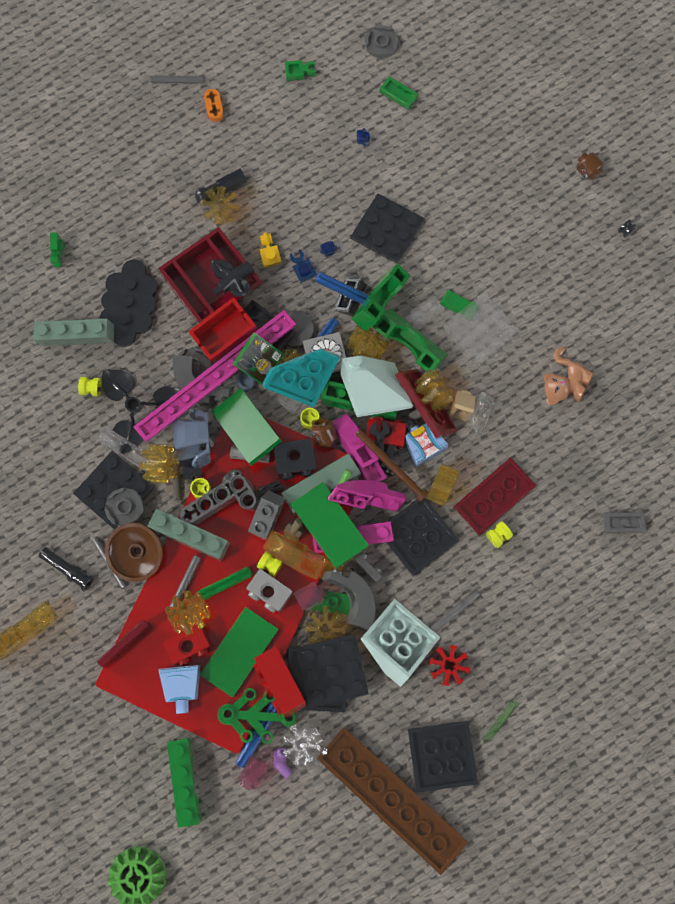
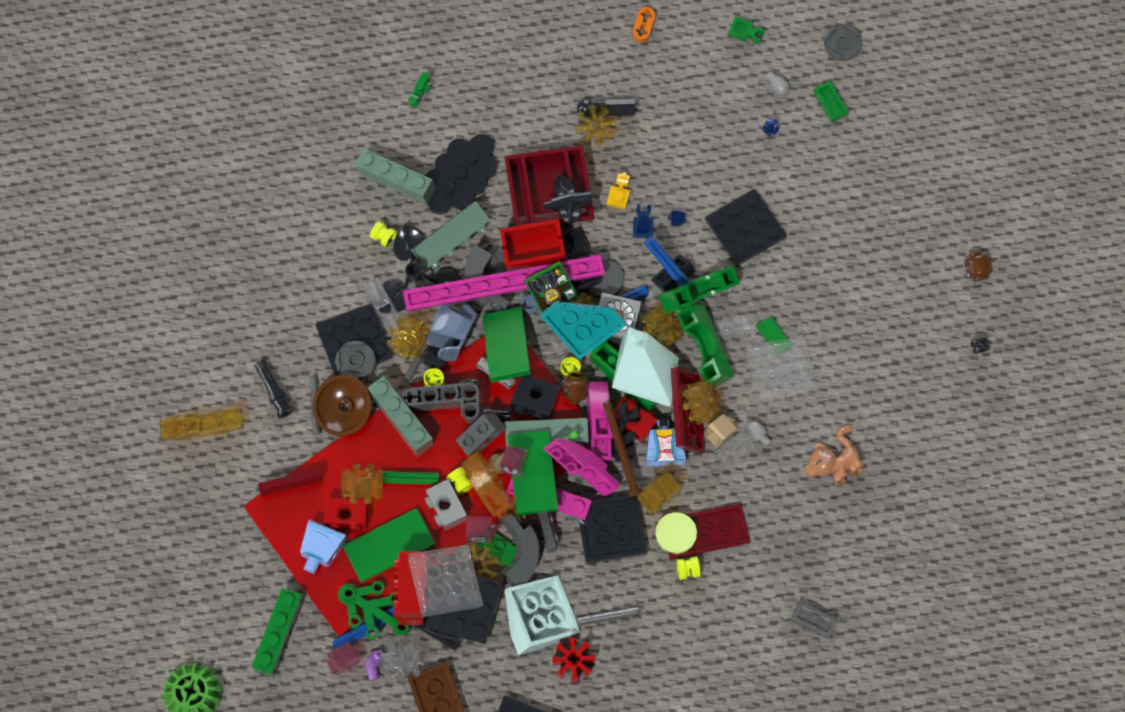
camera: 25 degrees right, 5 degrees down
(148, 357) = (450, 235): none -> sand green brick
(187, 578) = (379, 453): dark grey bar -> none
(307, 661) = (445, 580): none -> clear plate
(309, 524) = (513, 460): none -> clear pink brick
(349, 99) = (778, 83): none -> light grey cylinder
(473, 510) = (676, 533): none -> yellowish green tile
(492, 390) = (758, 432): none -> light grey cylinder

